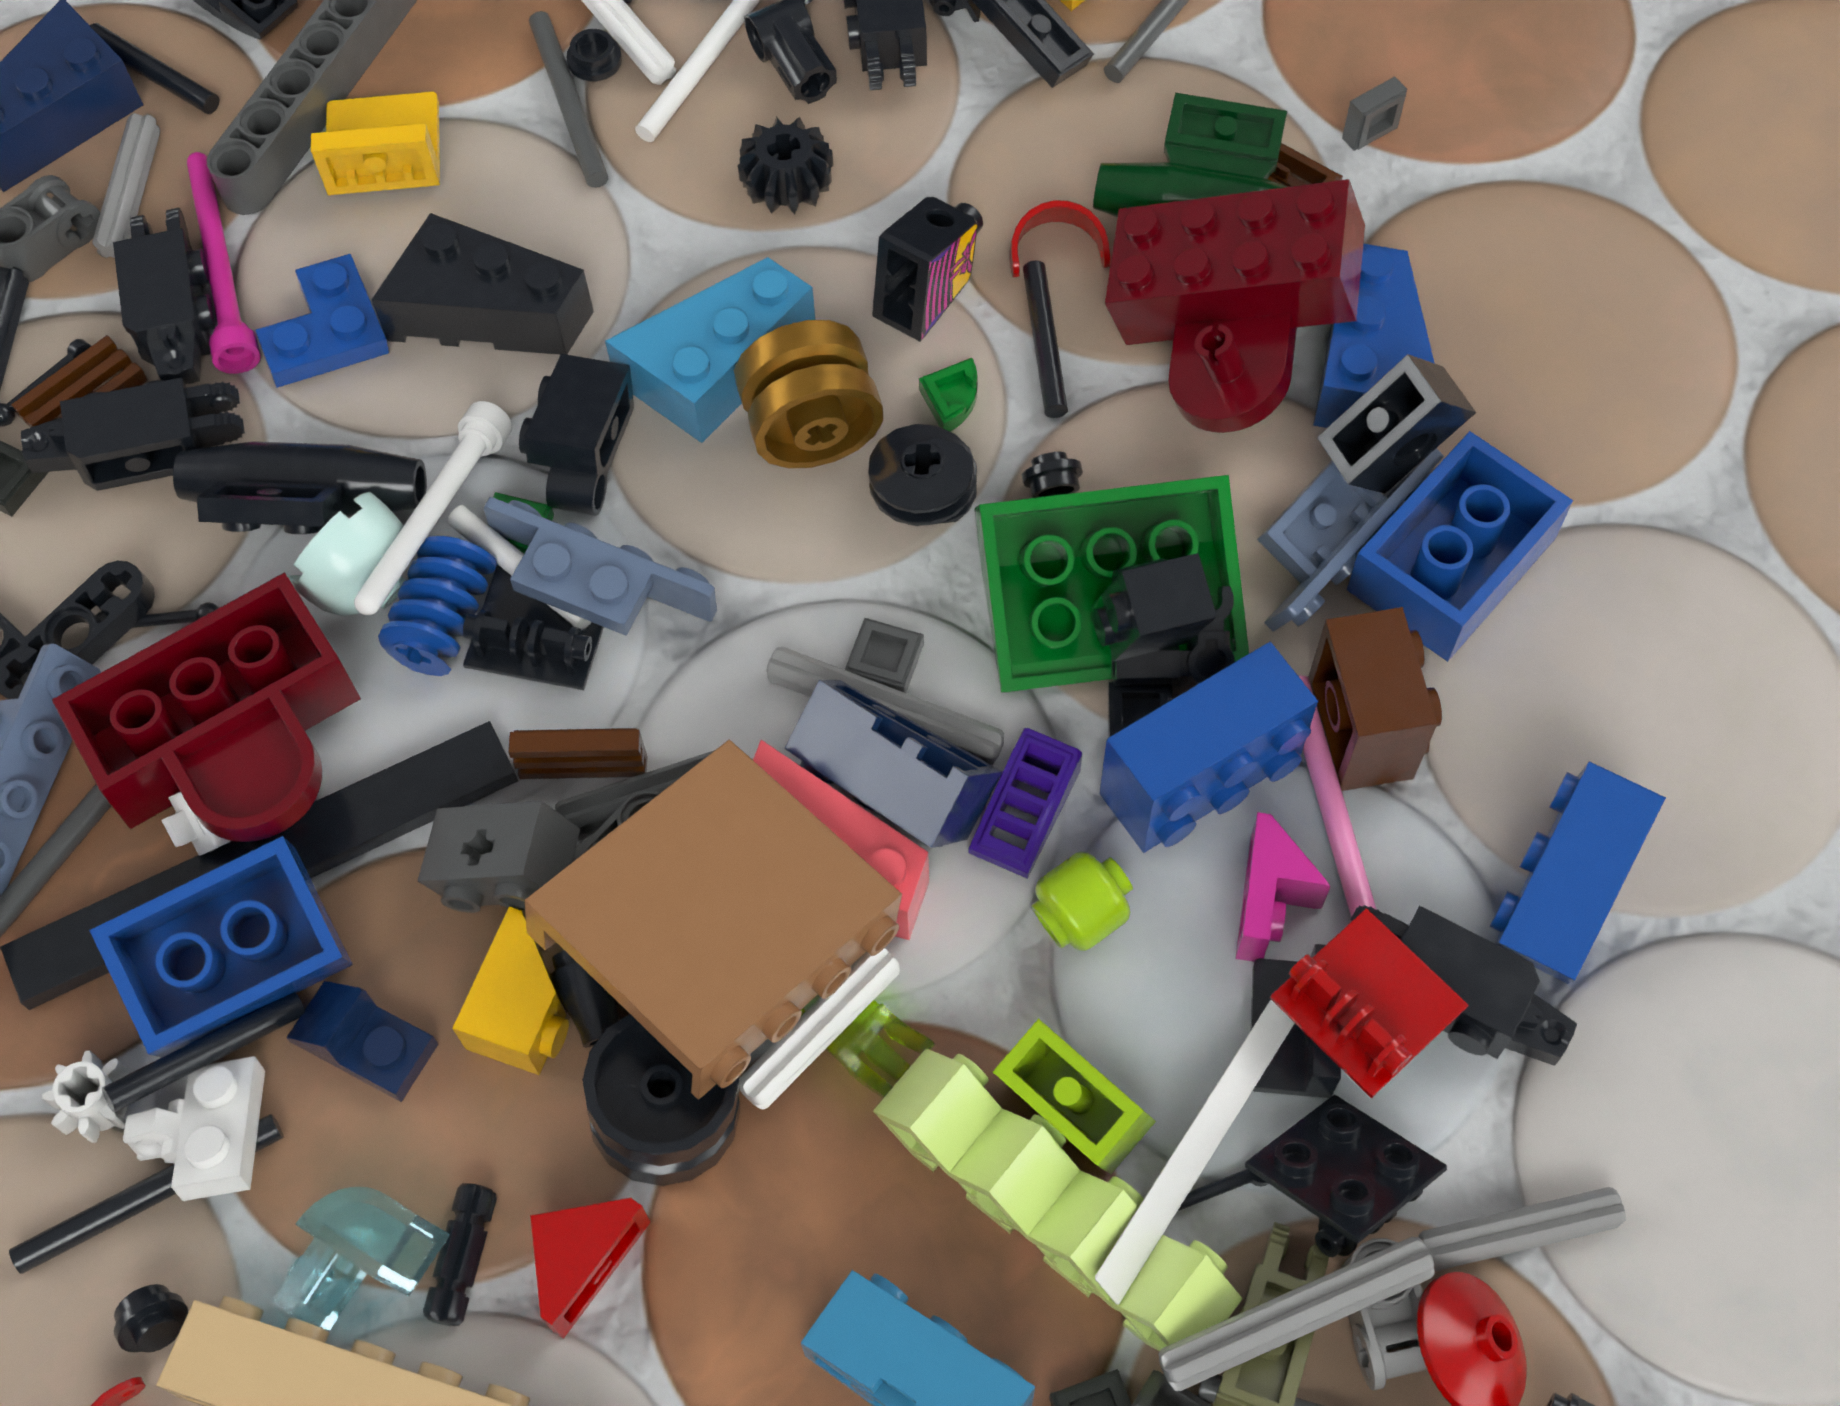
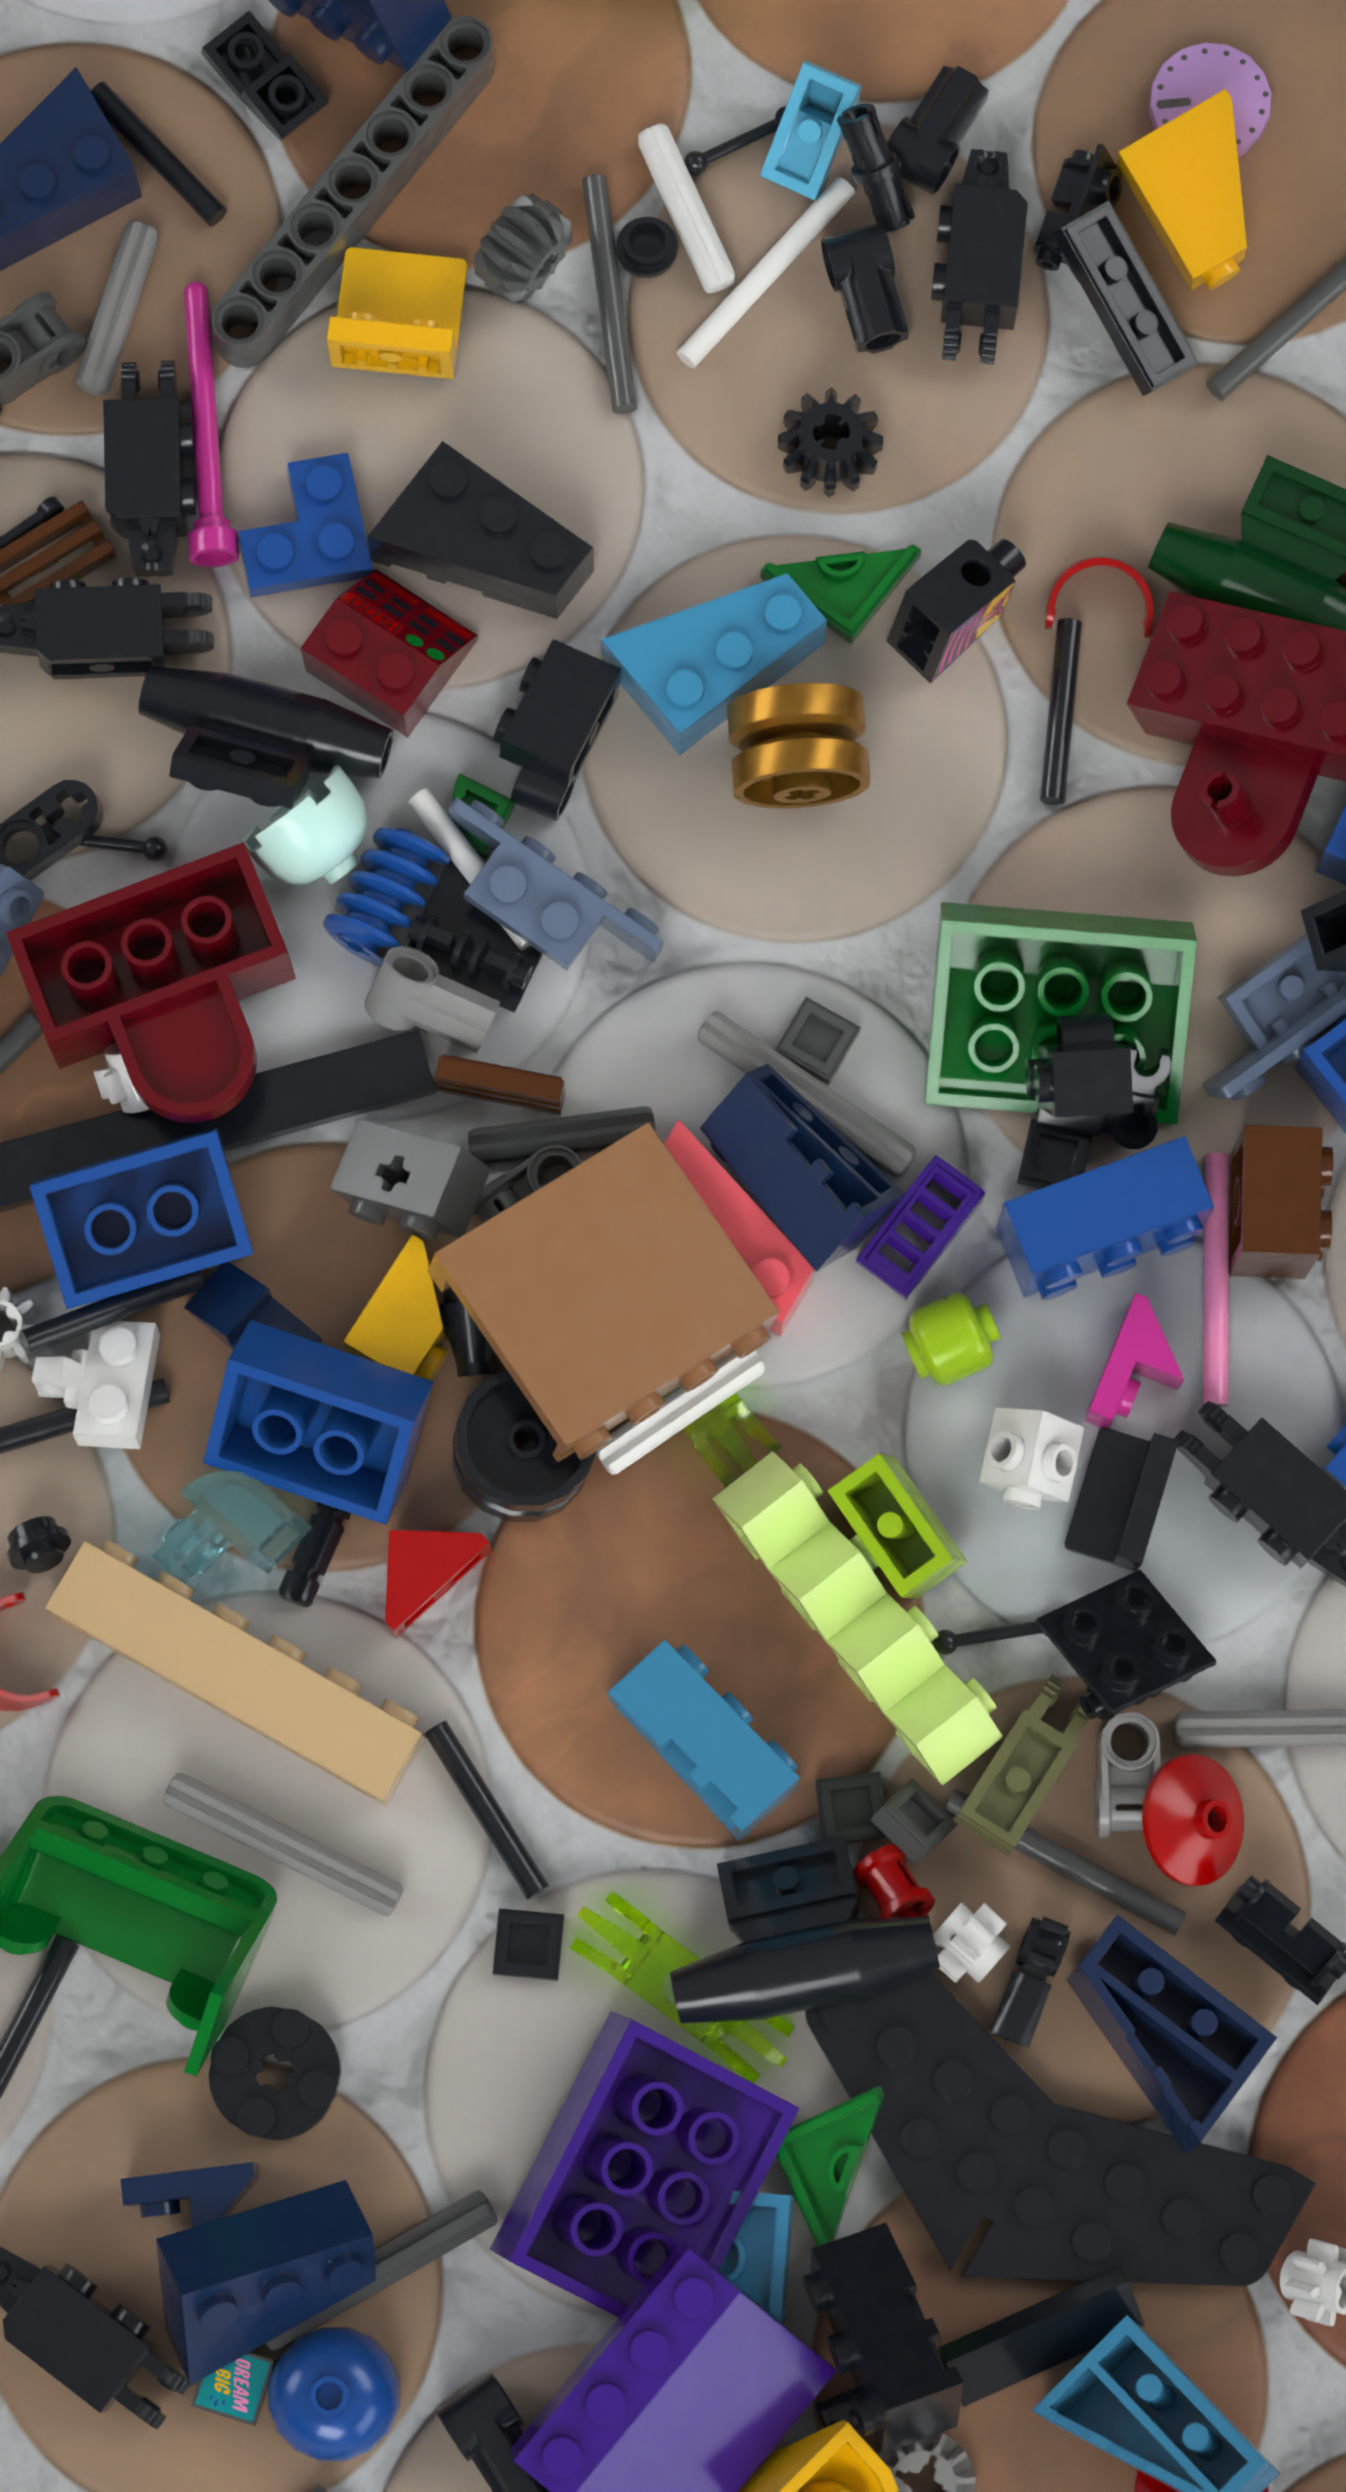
camera: 10 degrees right, 15 degrees up
(403, 402) = (386, 650): none -> dark red slope
(434, 1116) = (318, 1422): none -> blue brick
(479, 687) = (414, 994): none -> light grey piece
(480, 434) = (456, 704): white piece -> none
(481, 65) = (523, 248): none -> dark grey gear
(836, 275) = (848, 585): none -> green tile
(922, 475) = (870, 839): black piece -> none
(951, 393) = (948, 756): green tile -> none
(1052, 475) = (1029, 880): black plate -> none
(1193, 1153) = (1000, 1592): white sticker -> none
(1195, 997) = (1031, 1456): none -> white brick
(1296, 1313) = (1043, 1761): light grey axle -> none
(1368, 1002) = (1185, 1500): red hinge -> none

